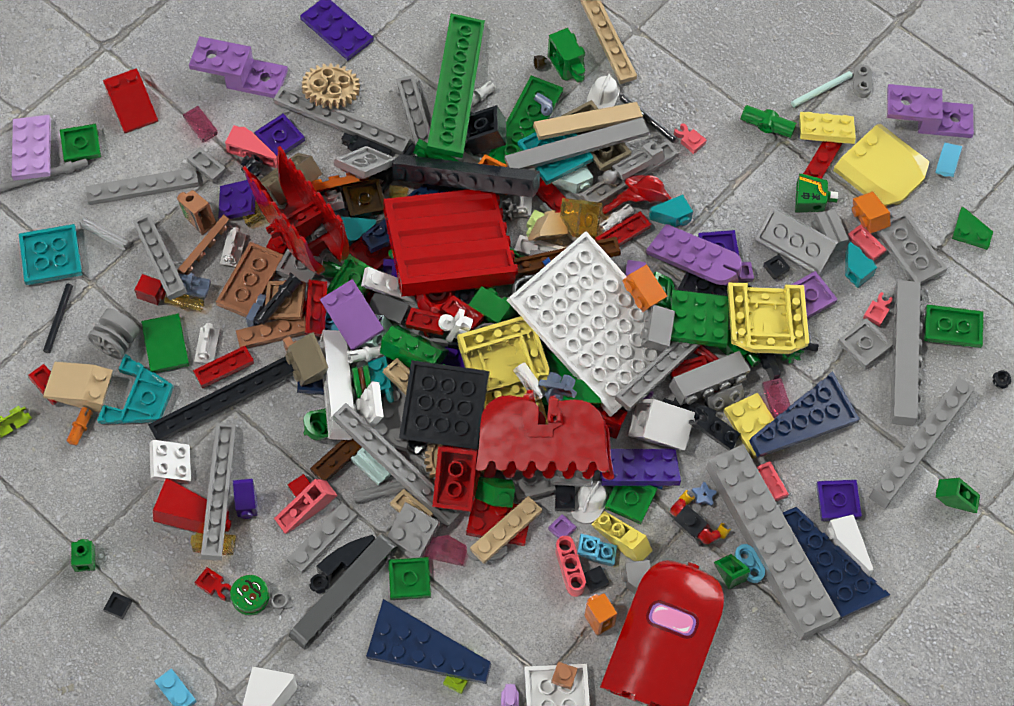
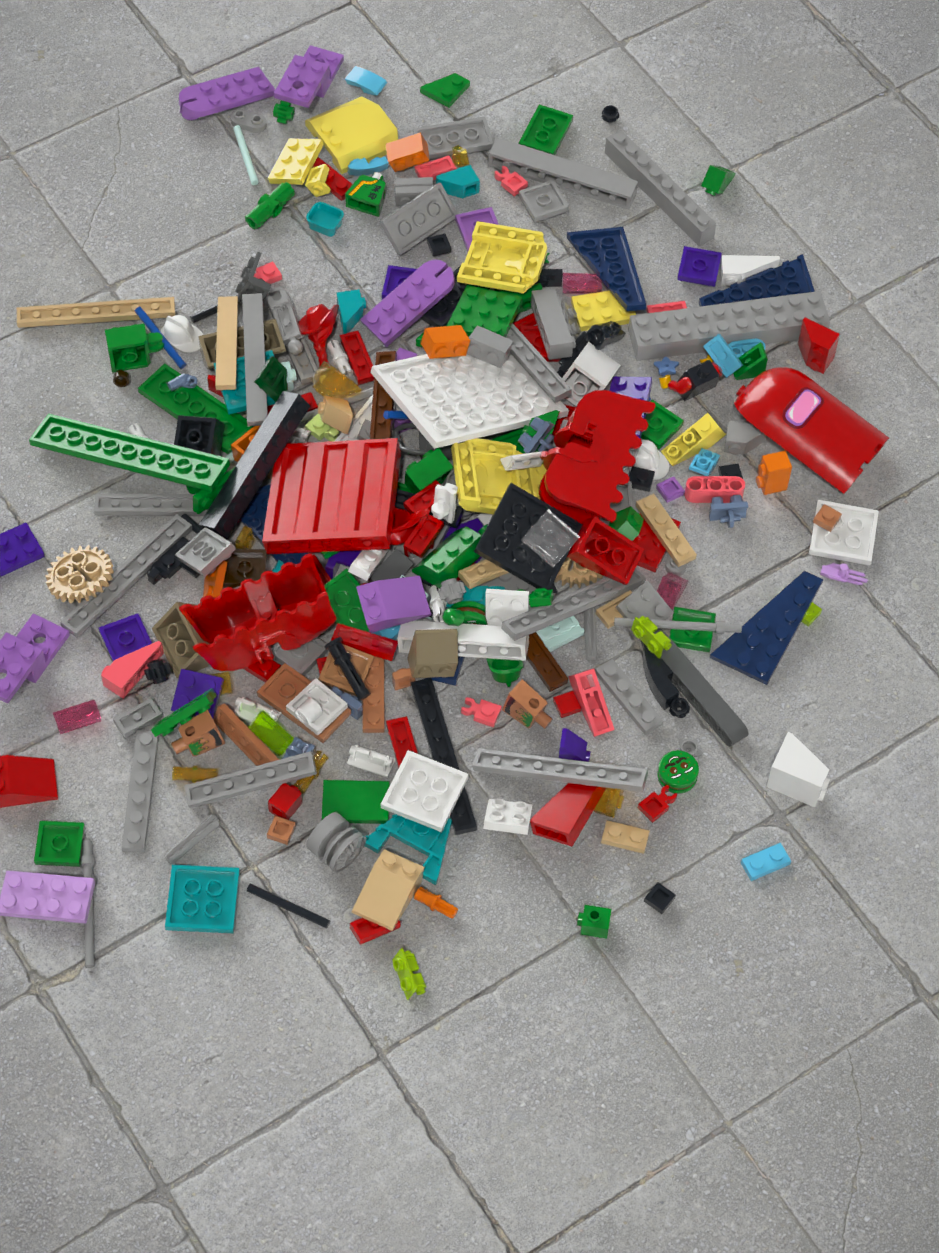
camera: 75 degrees left, 5 degrees down
(124, 294) = (281, 830): none -> nougat plate
(164, 219) = (193, 774): none -> clear yellow pin
(176, 565) = (625, 837): none -> tan plate
(177, 389) = (424, 791): none -> white plate
(207, 190) = (184, 713): none -> green plate
(211, 261) = (270, 733): none -> clear neon green tile
(240, 286) = (316, 706): none -> white plate
(277, 422) = (484, 712): none -> coral plate
(285, 445) = (526, 706): none -> nougat torso
(348, 365) = (453, 617): none -> green piece
(372, 357) = (451, 591): none -> light grey gear
(380, 529) = (644, 630): none -> lime hinge
(386, 431) = (540, 597): none -> green plate
(408, 597) = (719, 627): none -> light grey bar
(445, 421) = (550, 538): none -> clear plate
(554, 162) = (272, 378): none -> dark green wing
(554, 590) = (728, 511): none -> sand blue hips
(590, 77) = (167, 346): none -> blue bar
(659, 124) = (249, 283): none -> dark grey bracket
(729, 541) = (723, 355): none -> medium azure plate
(769, 629) = (817, 345): none -> red slope
(770, 167) = (324, 218): none -> teal piece
(809, 147) = (316, 180): none -> light yellow bracket
(844, 185) = (361, 167): none -> medium azure slope
(879, 103) = (283, 112): none -> green gear
(883, 52) = (224, 93): none -> medium lavender plate
(885, 258) = (460, 156): none -> clear yellow plate

